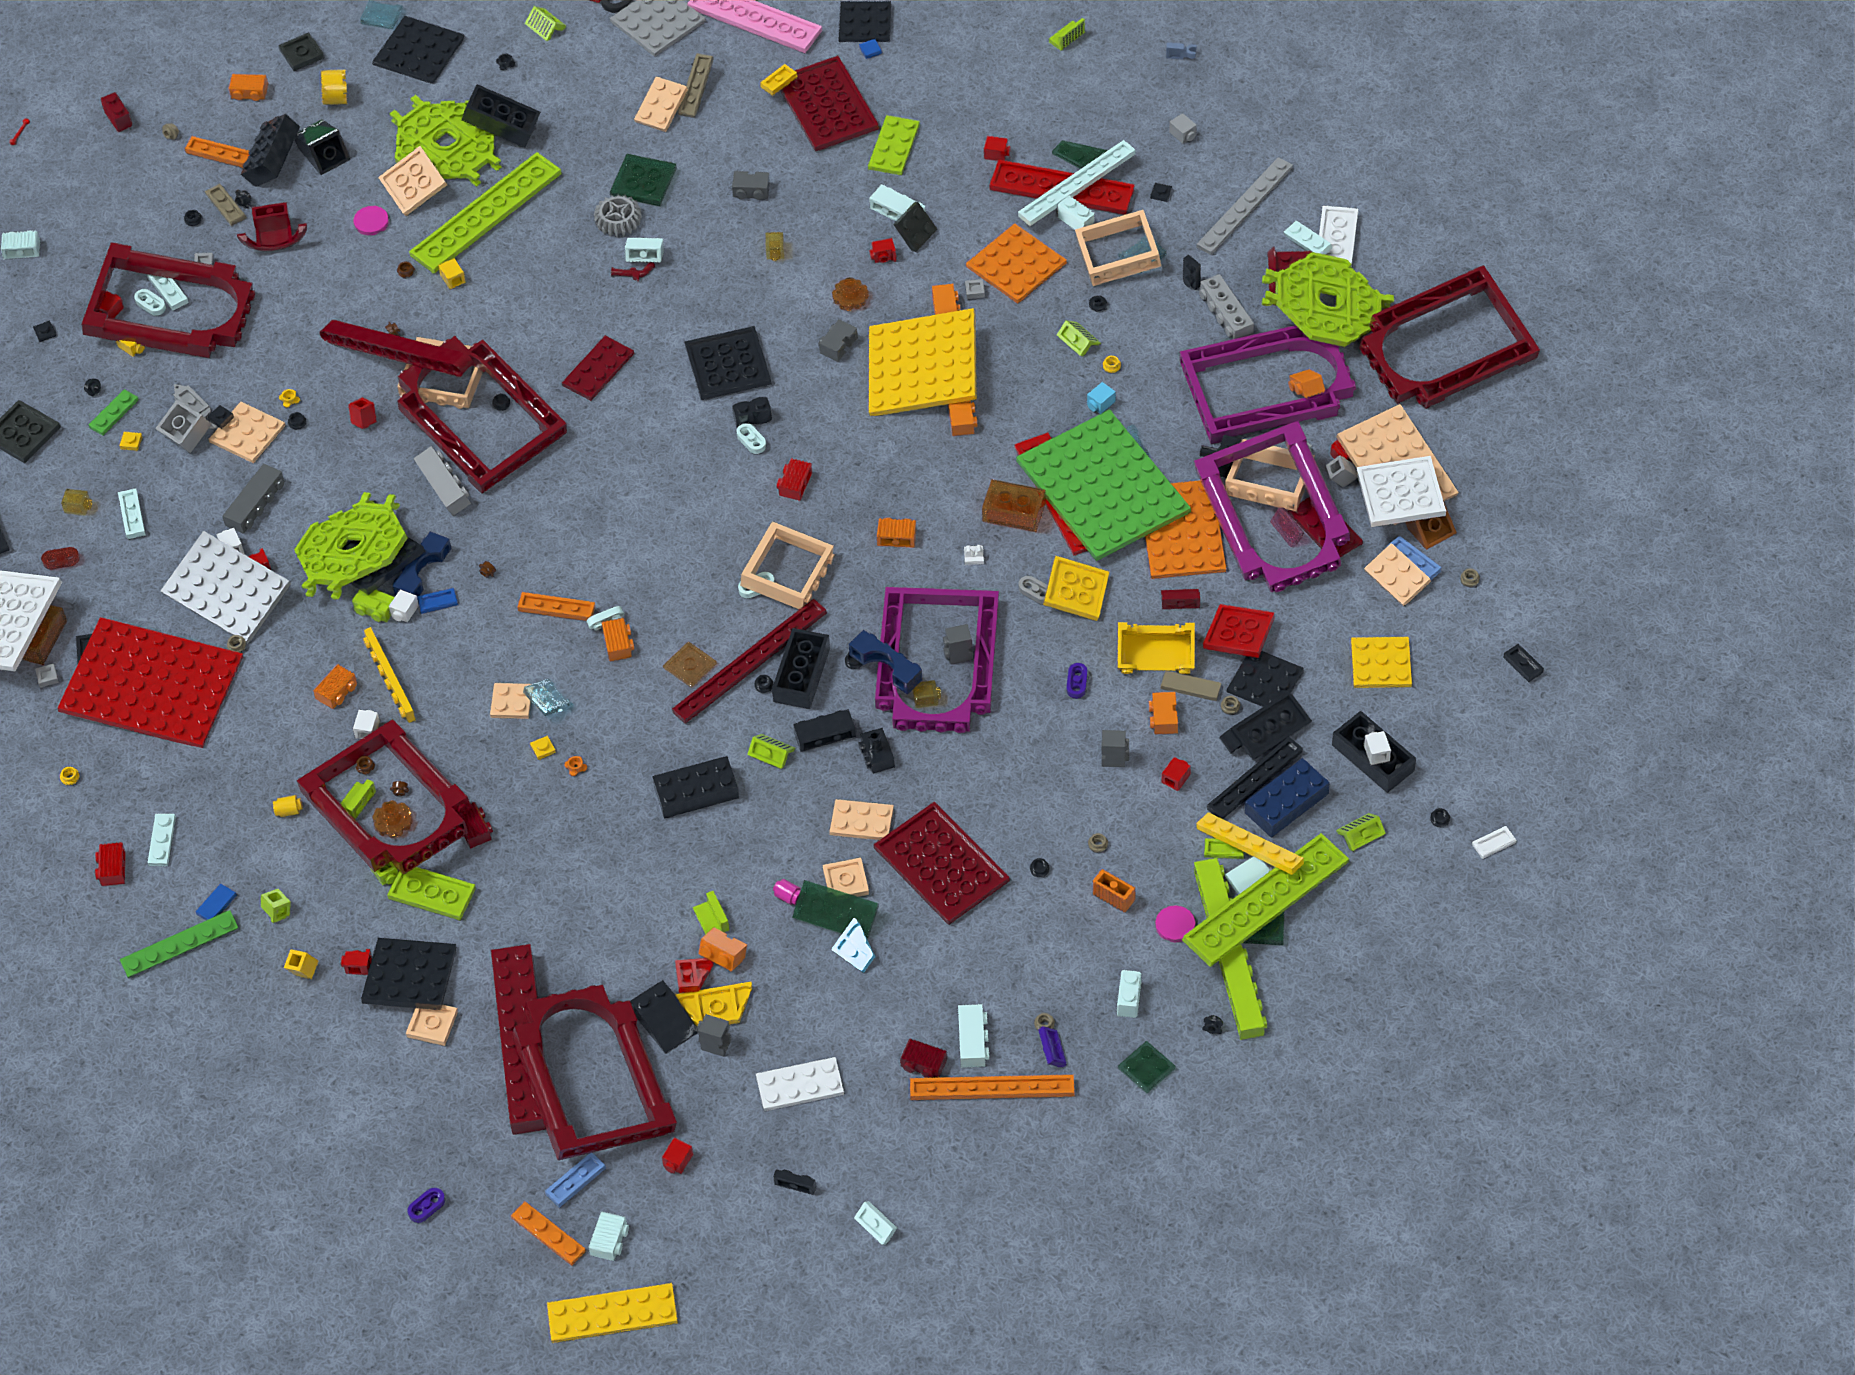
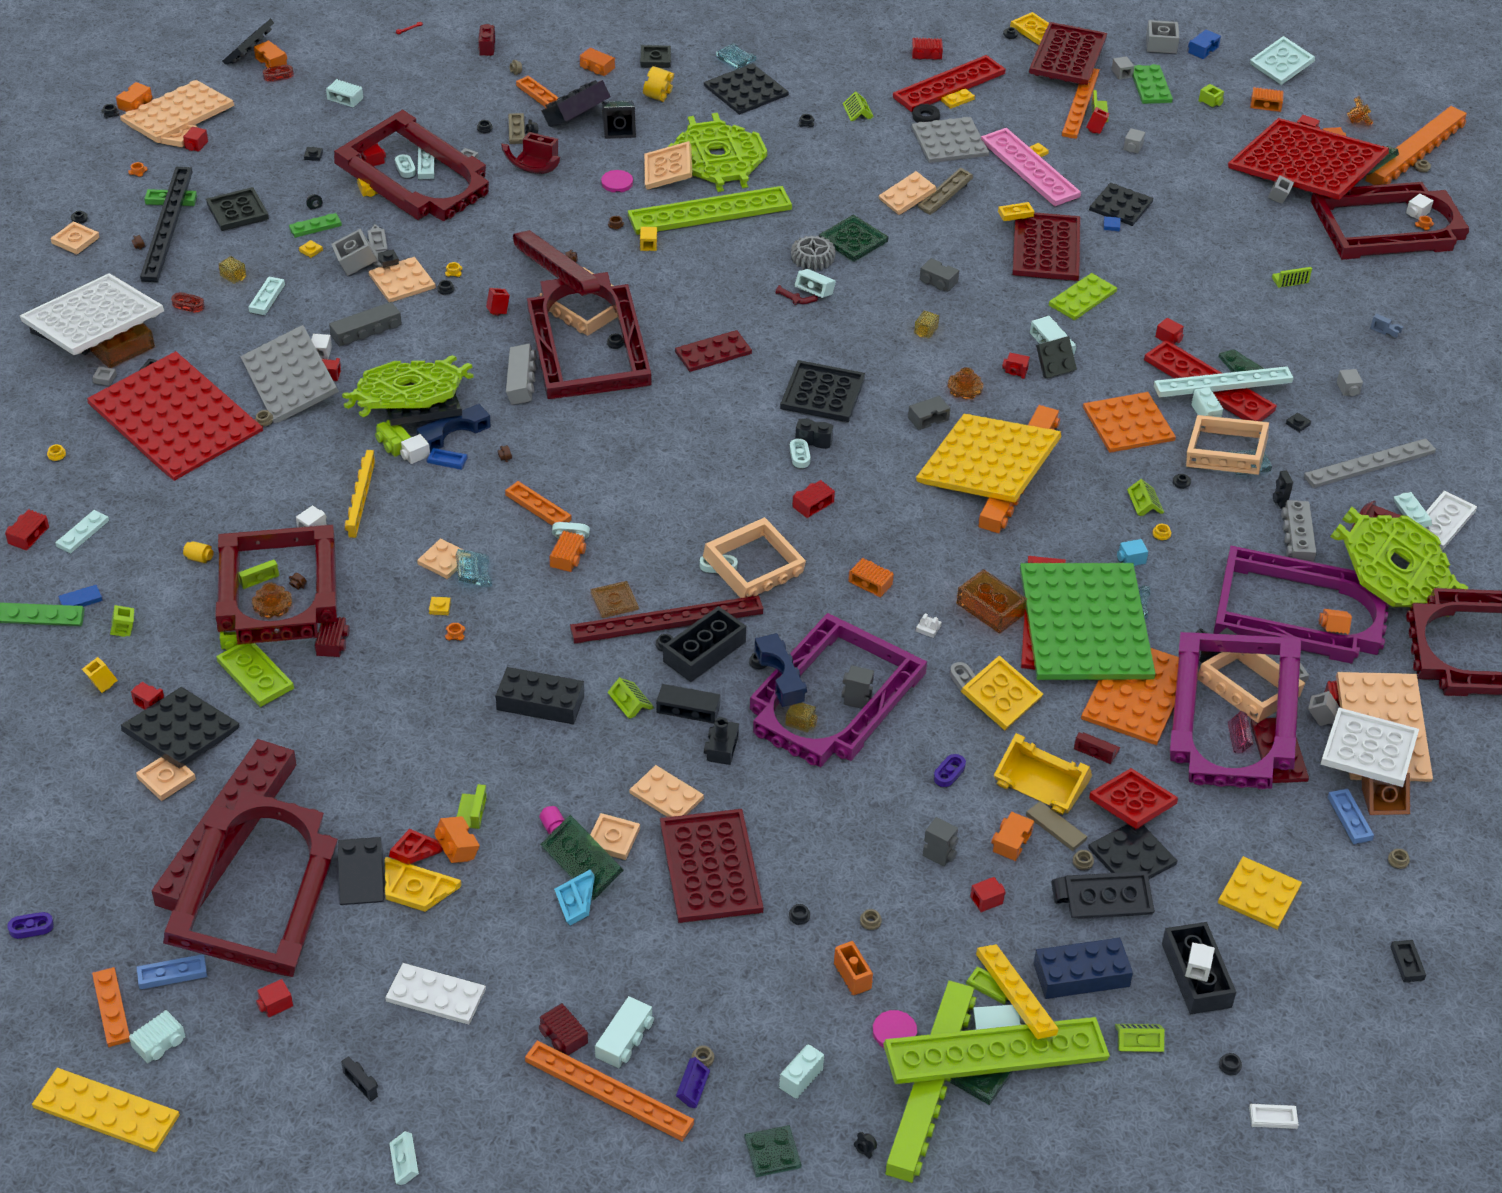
camera: 25 degrees right, 10 degrees down
(335, 686) = (311, 482): orange brick -> none
(361, 762) = (285, 551): reddish brown plate -> none
(500, 115) = (769, 148): black brick -> none
(714, 1035) = (388, 907): dark grey brick -> none
(974, 289) = (1077, 425): light grey plate -> none
(1255, 778) = (1066, 934): black plate -> none
(1397, 574) = (1325, 822): light nougat plate -> none

